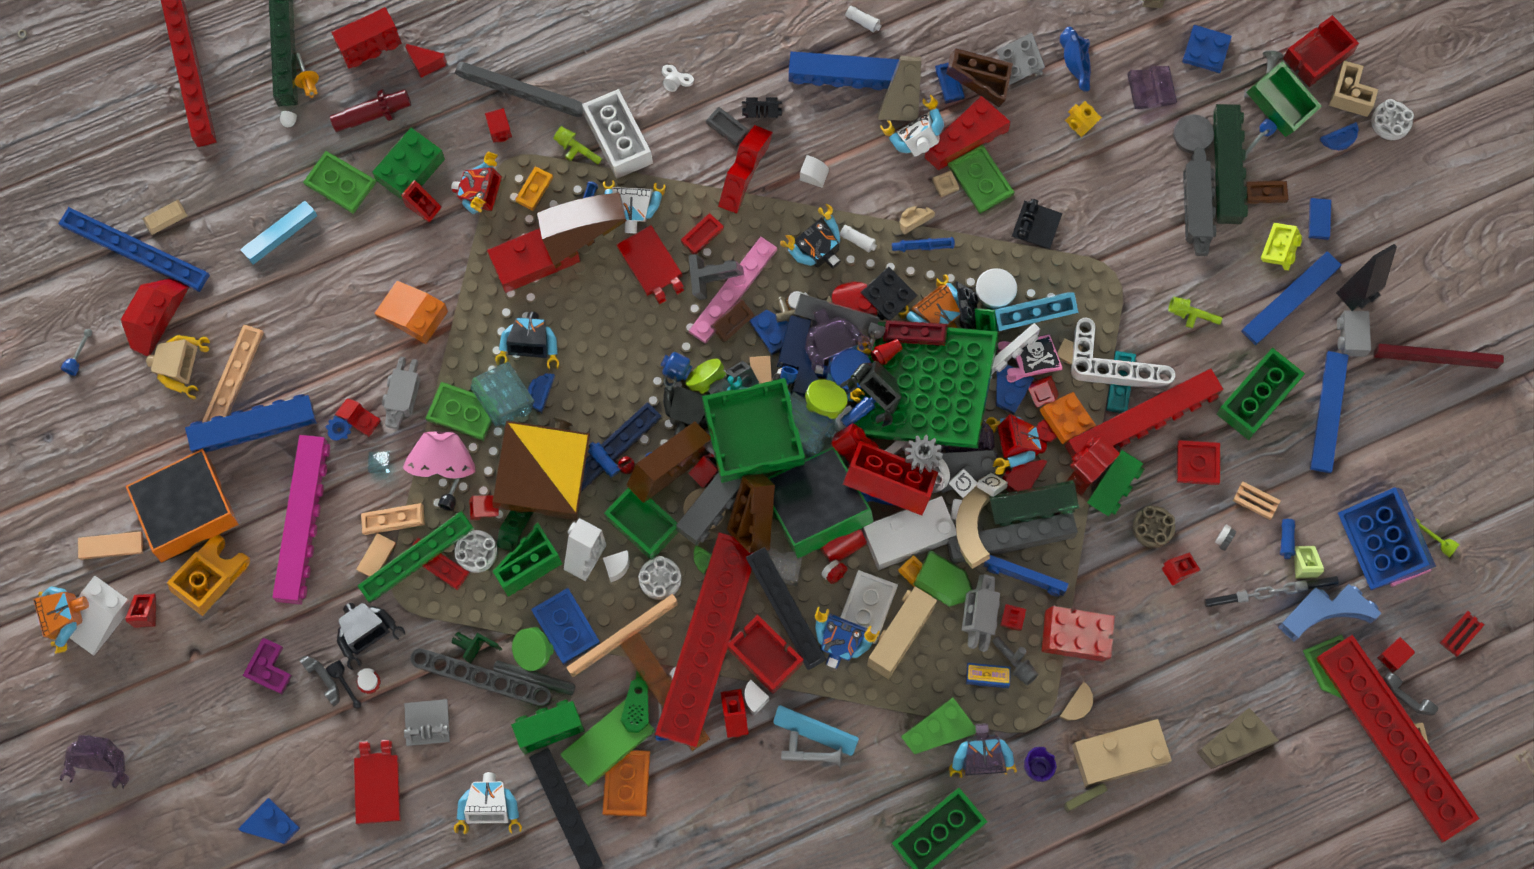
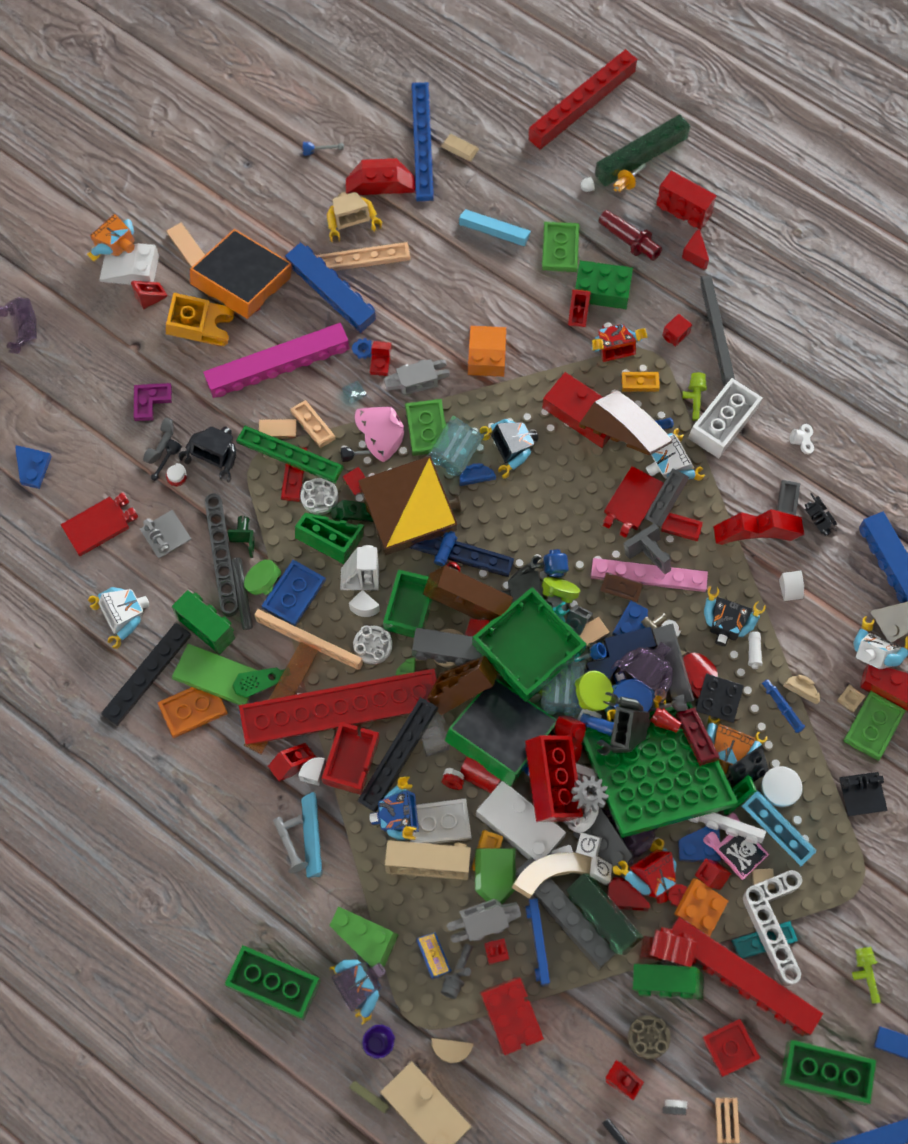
camera: 60 degrees right, 5 degrees down
(670, 230) = (666, 497): none -> dark grey plate

